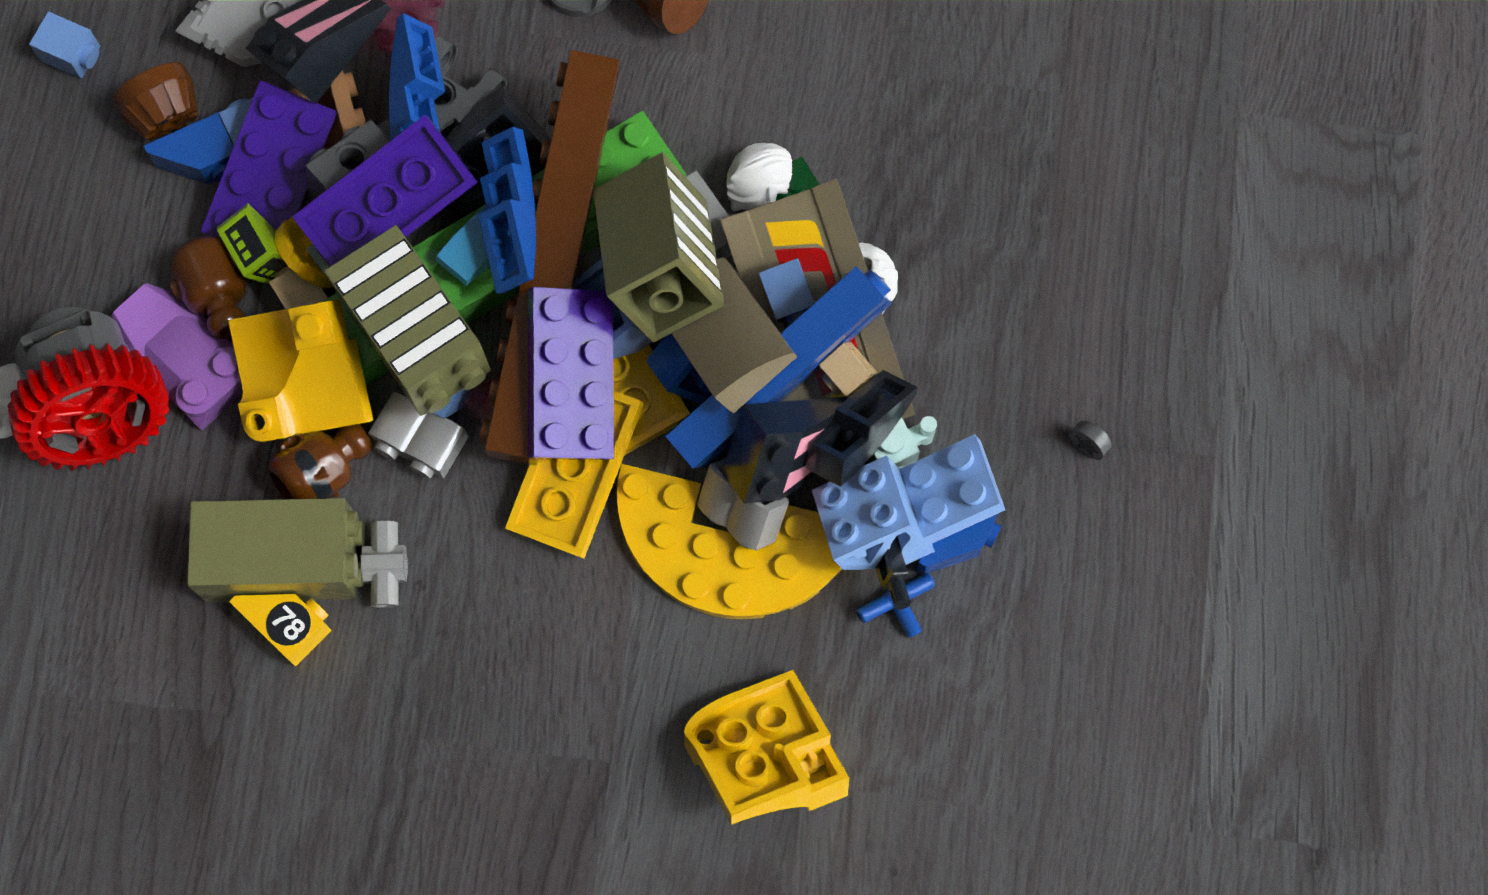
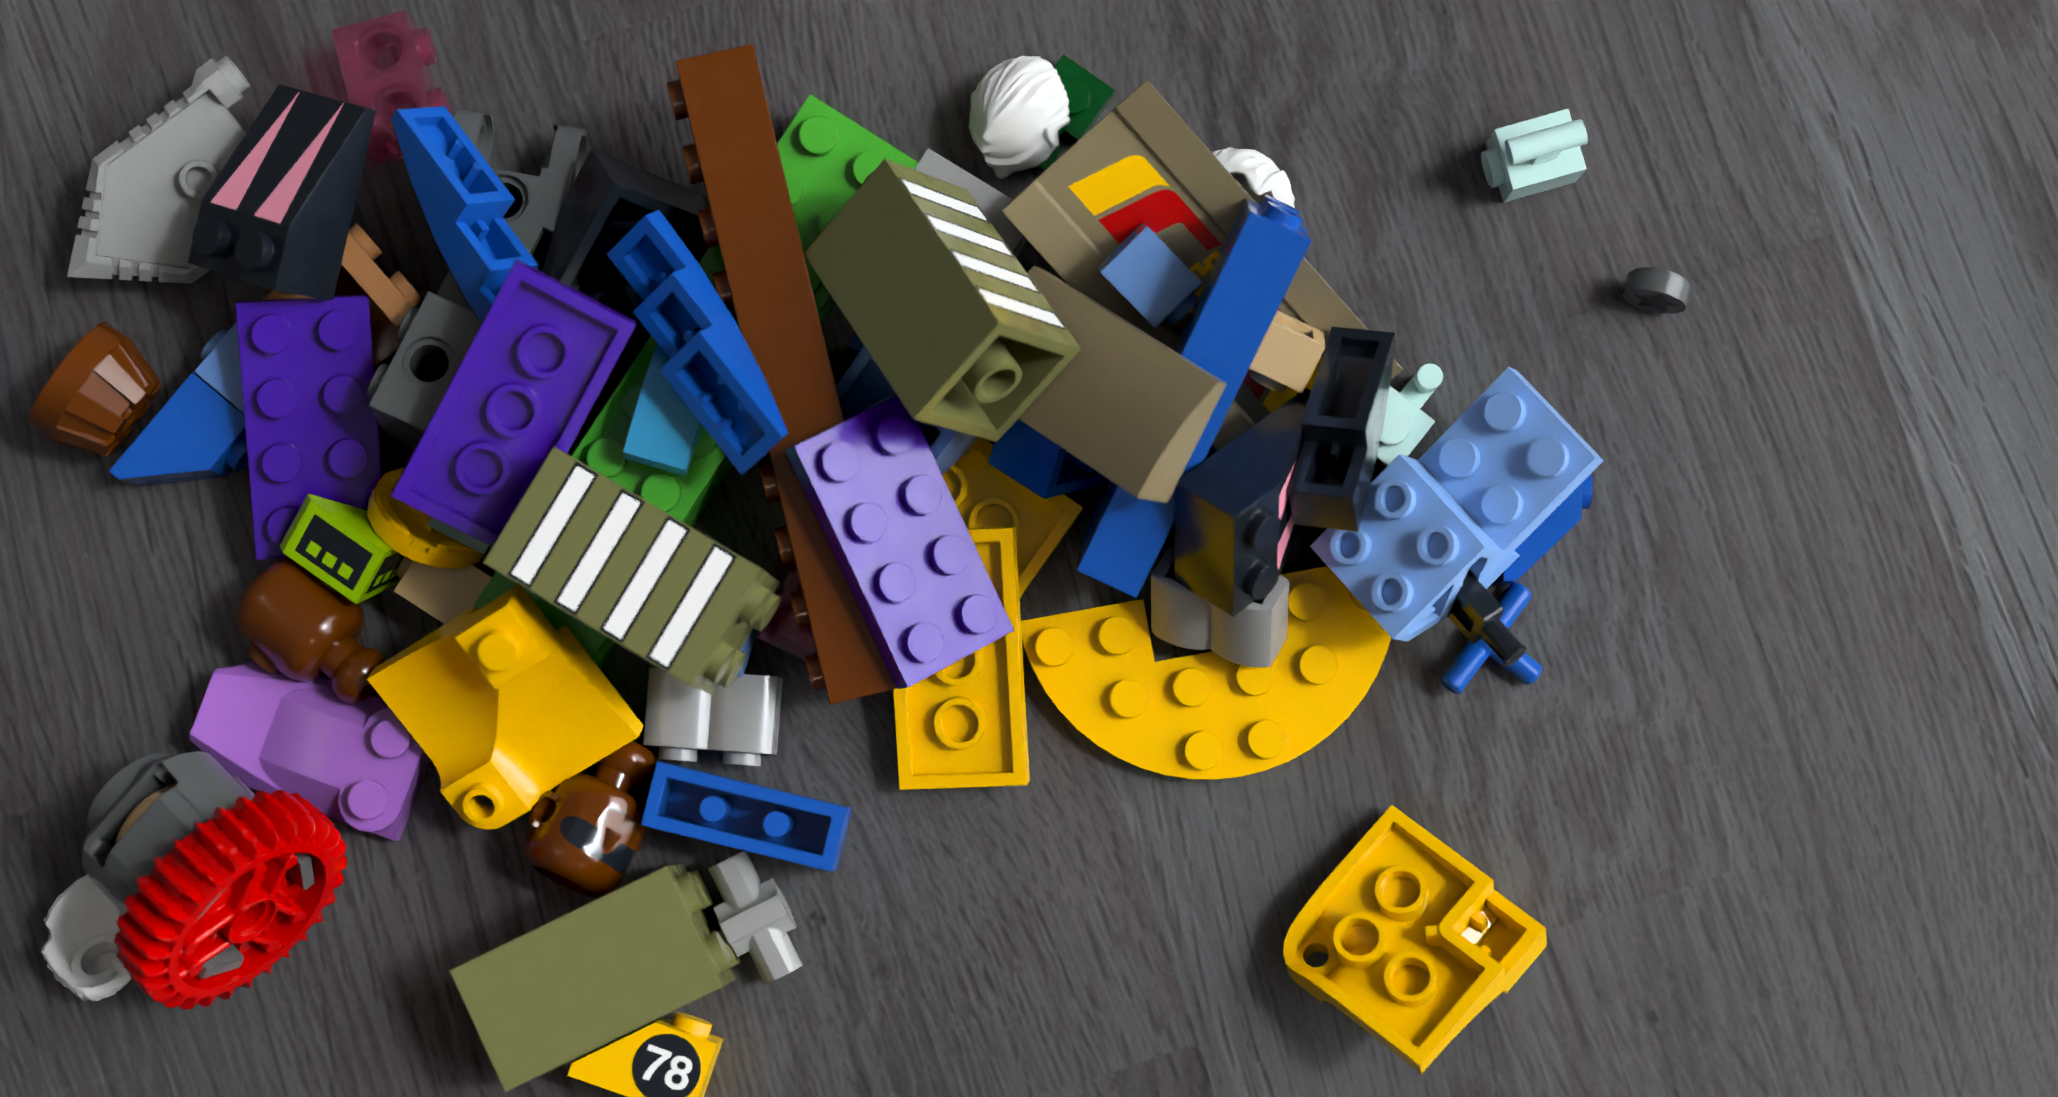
camera: 20 degrees left, 10 degrees up
(408, 501) = (746, 816): none -> blue brick
(1051, 330) = (1535, 155): none -> light aqua brick

